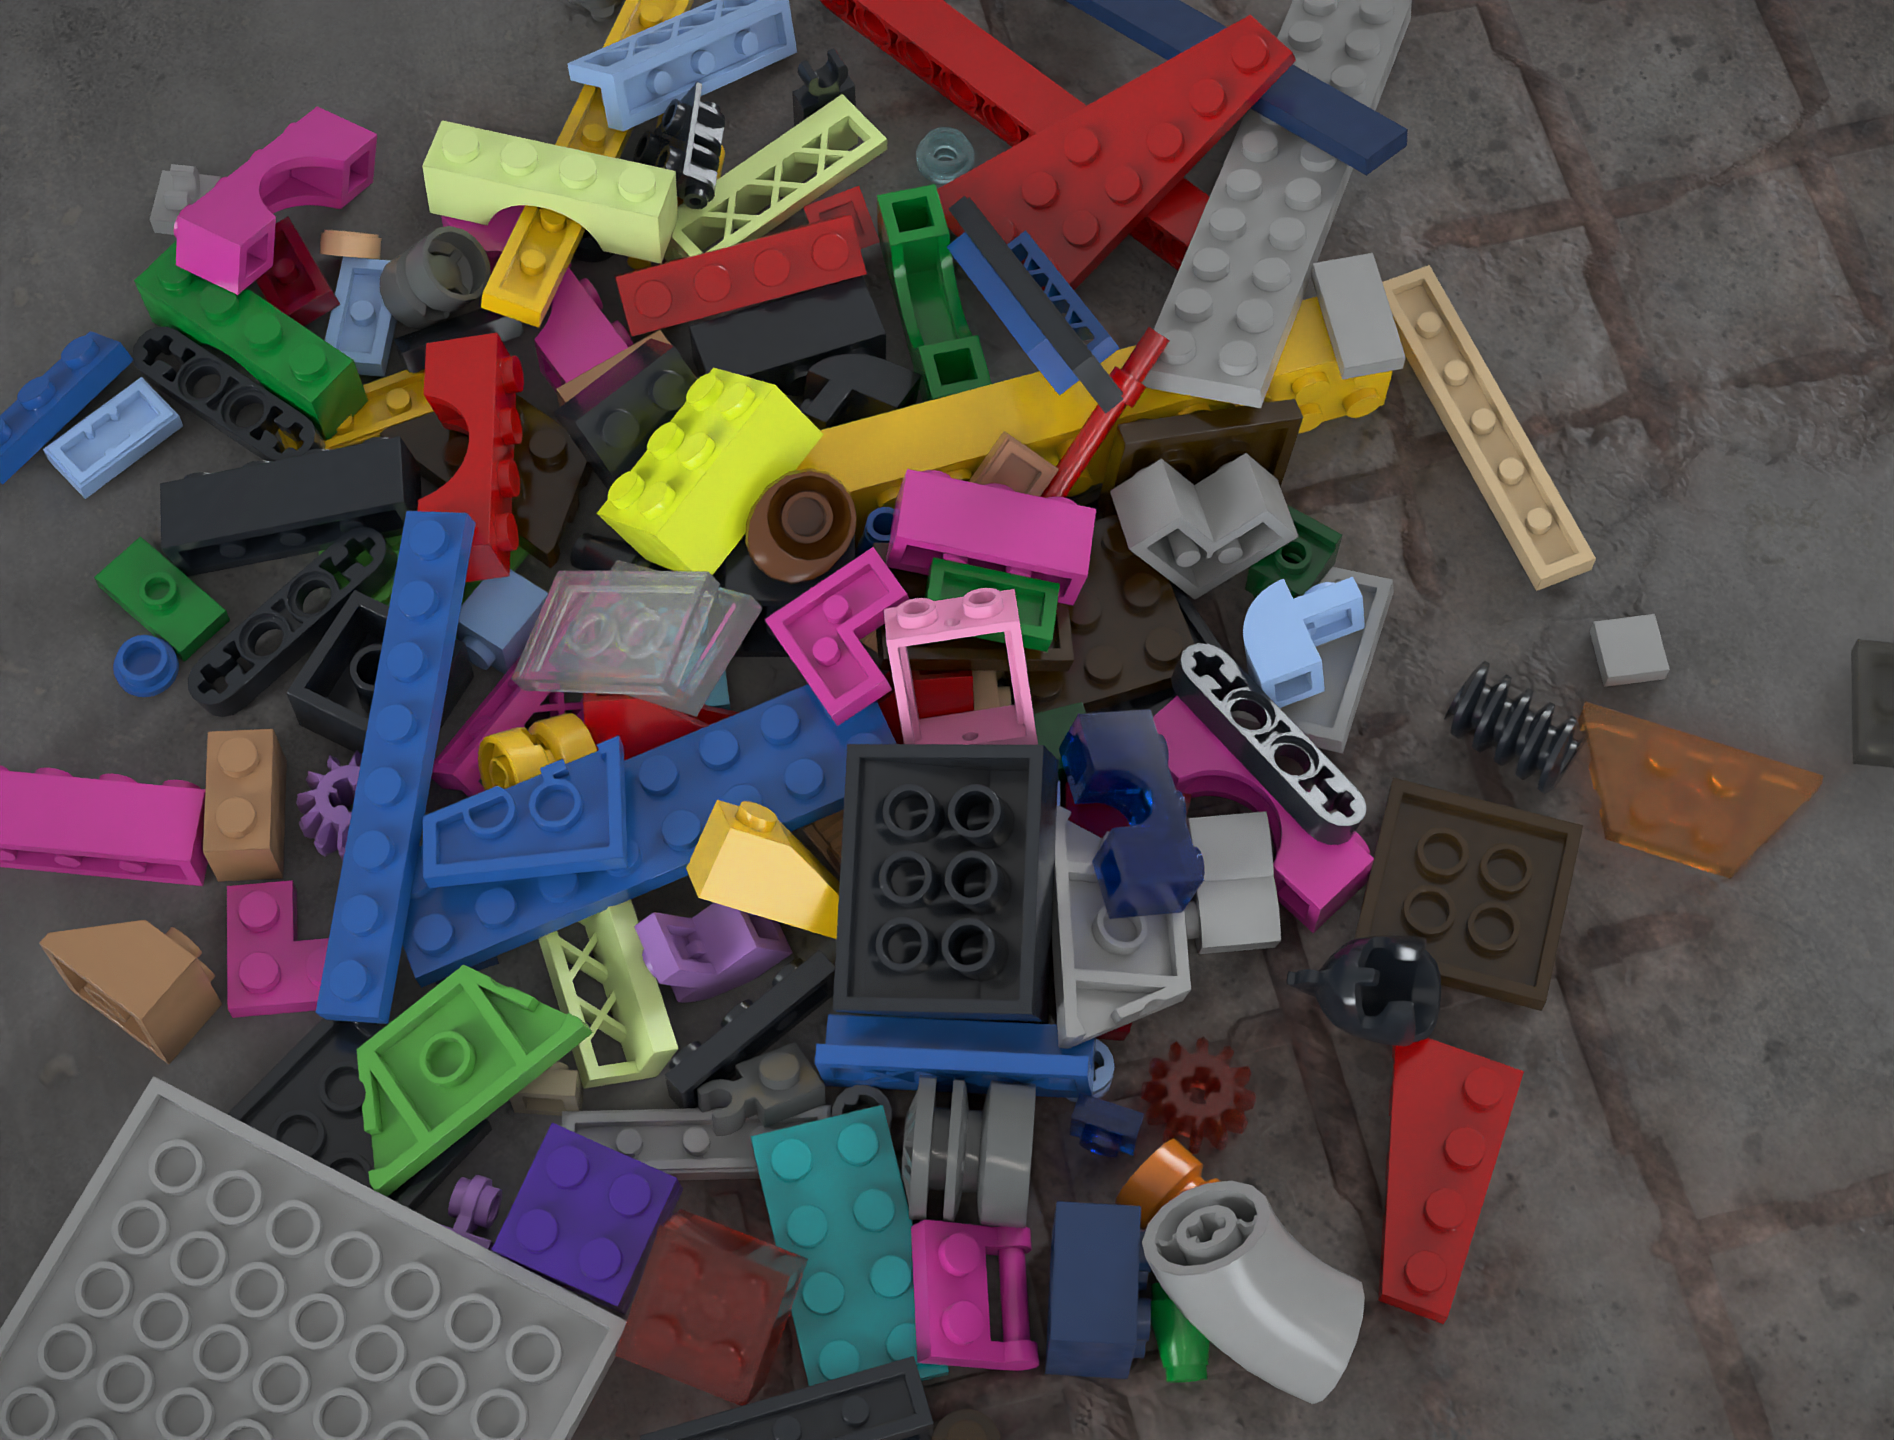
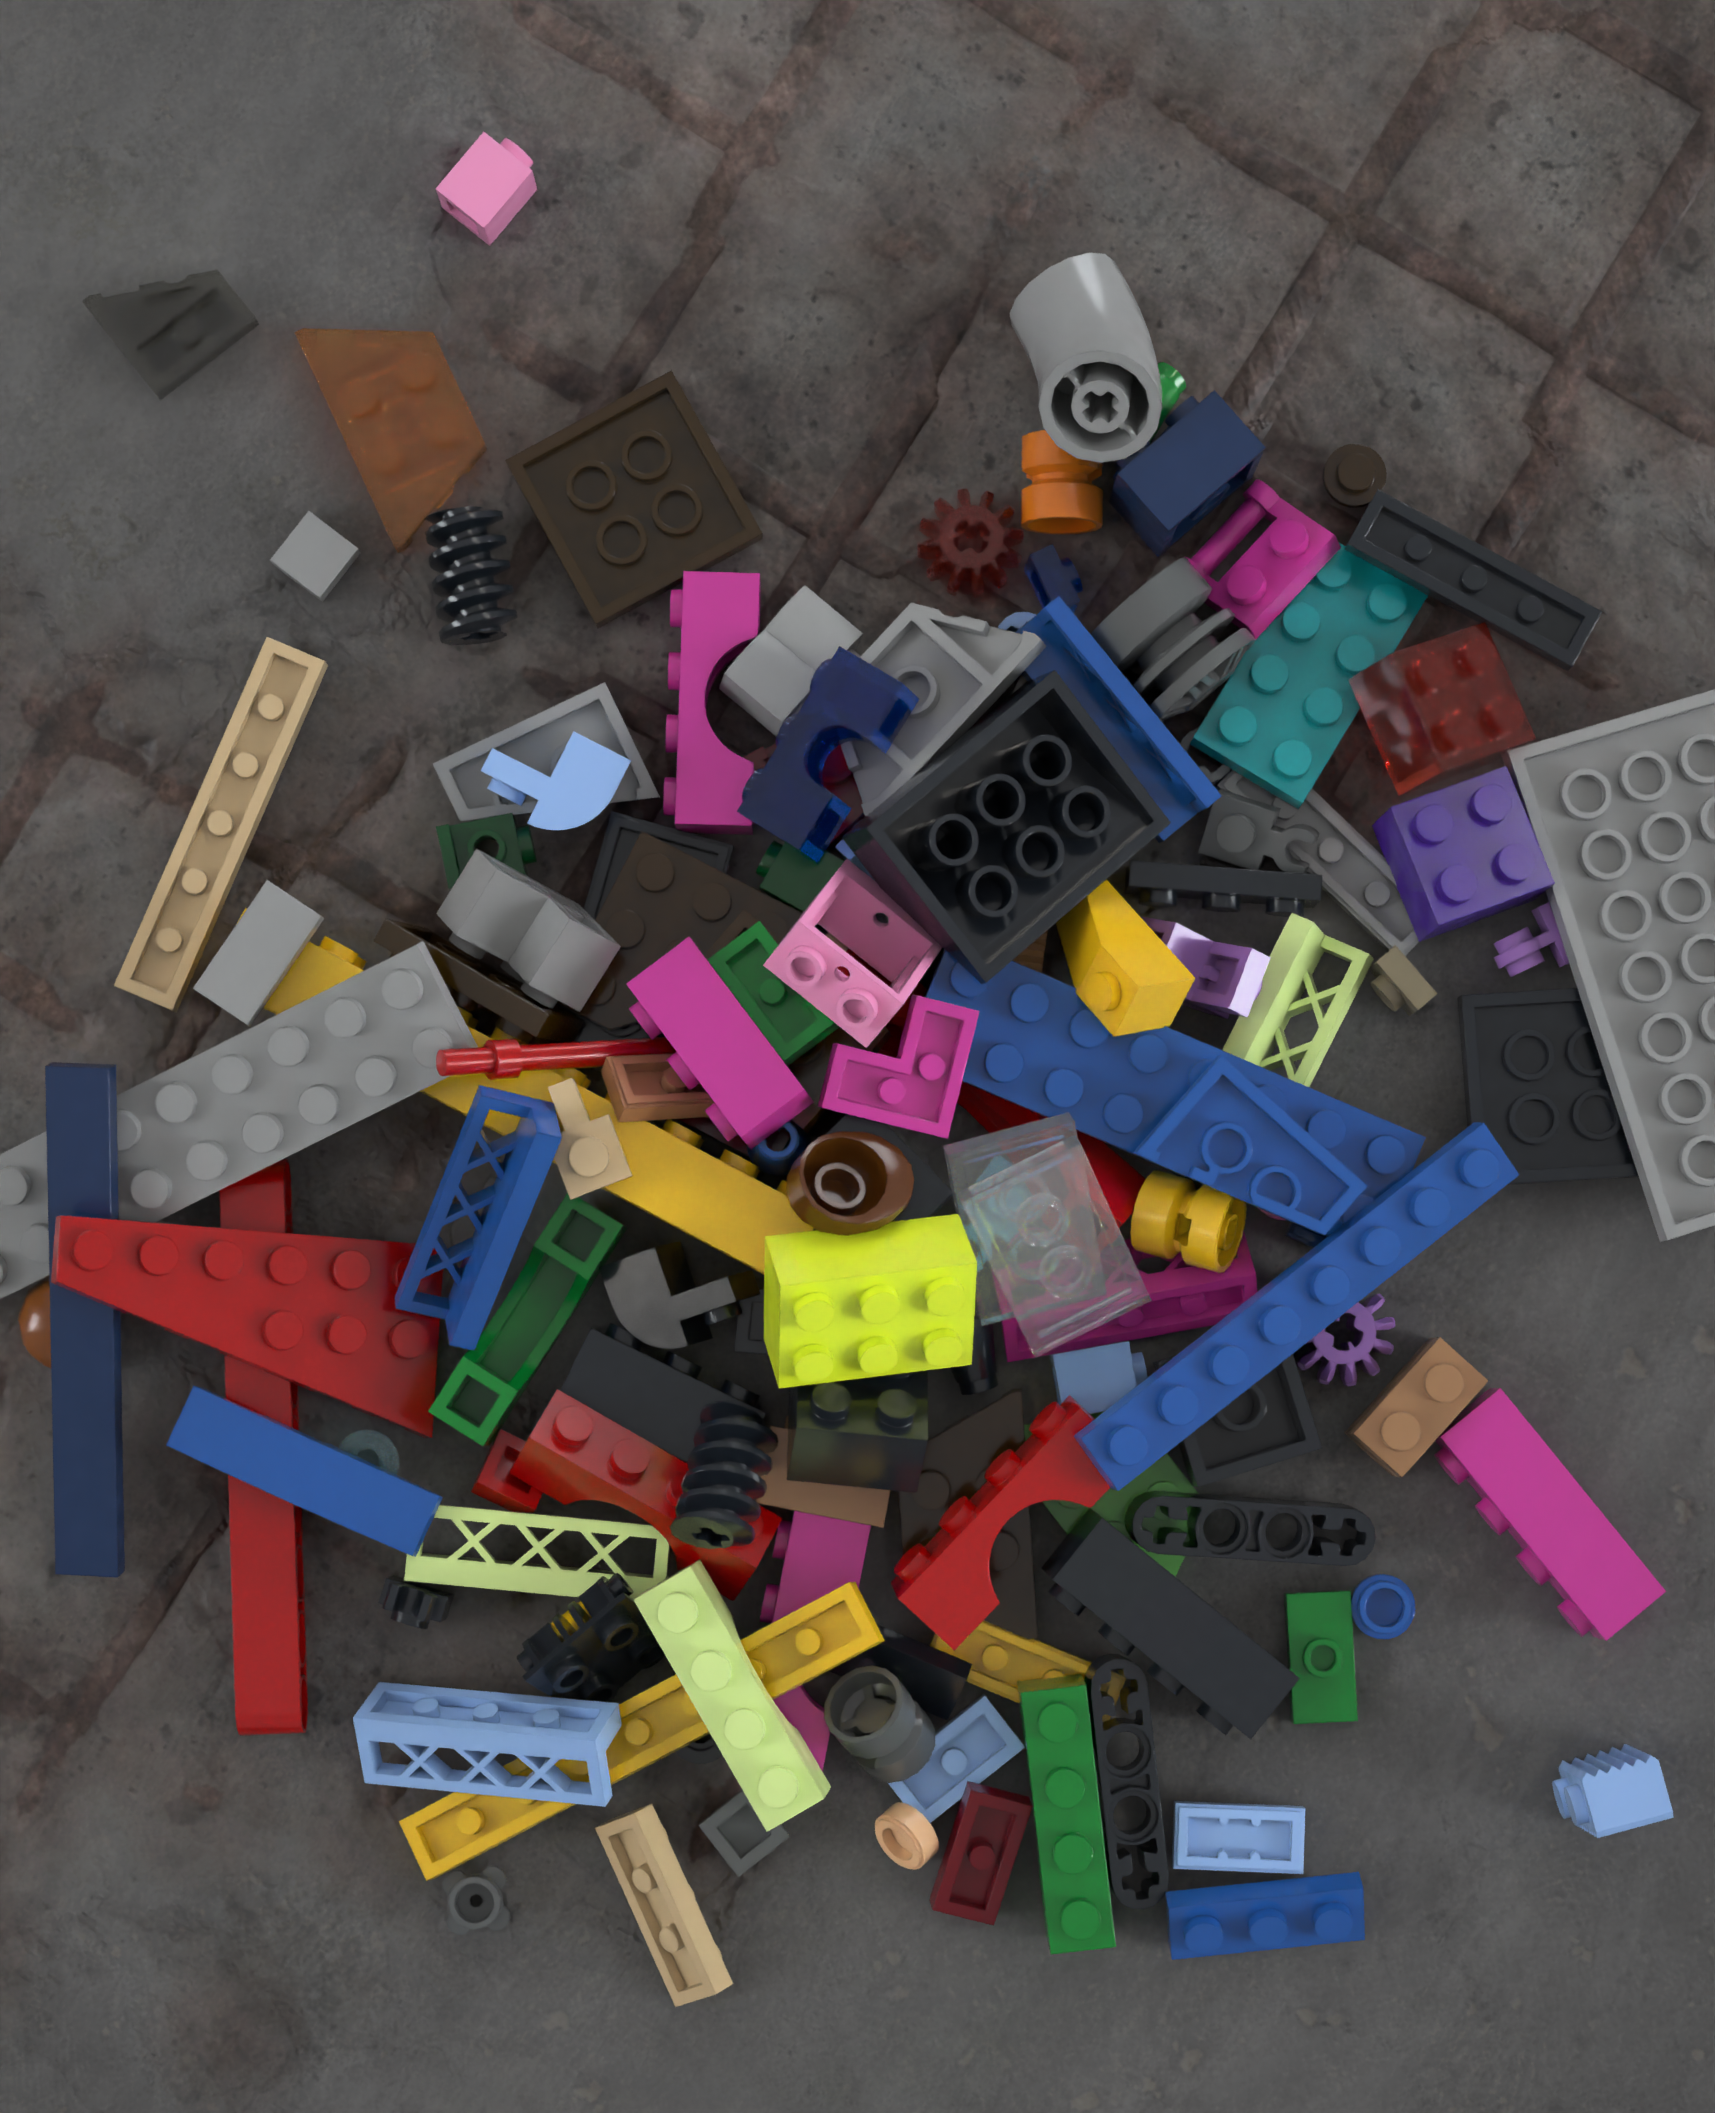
camera: 135 degrees left, 20 degrees up
(138, 980) = (1618, 1327): medium nougat slope -> none
(176, 190) = (990, 2015): light grey tile -> none
(232, 227) = (1012, 1901): dark pink arch -> none
(265, 960) = (1501, 1278): dark pink plate -> none
(453, 1066) = (1459, 1042): bright green wing -> none
(473, 81) = (664, 1905): none -> tan plate
(690, 294) = (724, 1477): none -> black piece
(976, 86) = (304, 1471): none -> blue slope
(1008, 392) = (589, 1150): none -> tan plate
(1037, 305) = (493, 1194): black tile -> none
(1276, 738) = (658, 720): black beam -> none
(1377, 989) = (783, 483): black helmet -> none
(1440, 1158) = (845, 352): red wing -> none
(1822, 1004) = (488, 186): none -> bright pink brick

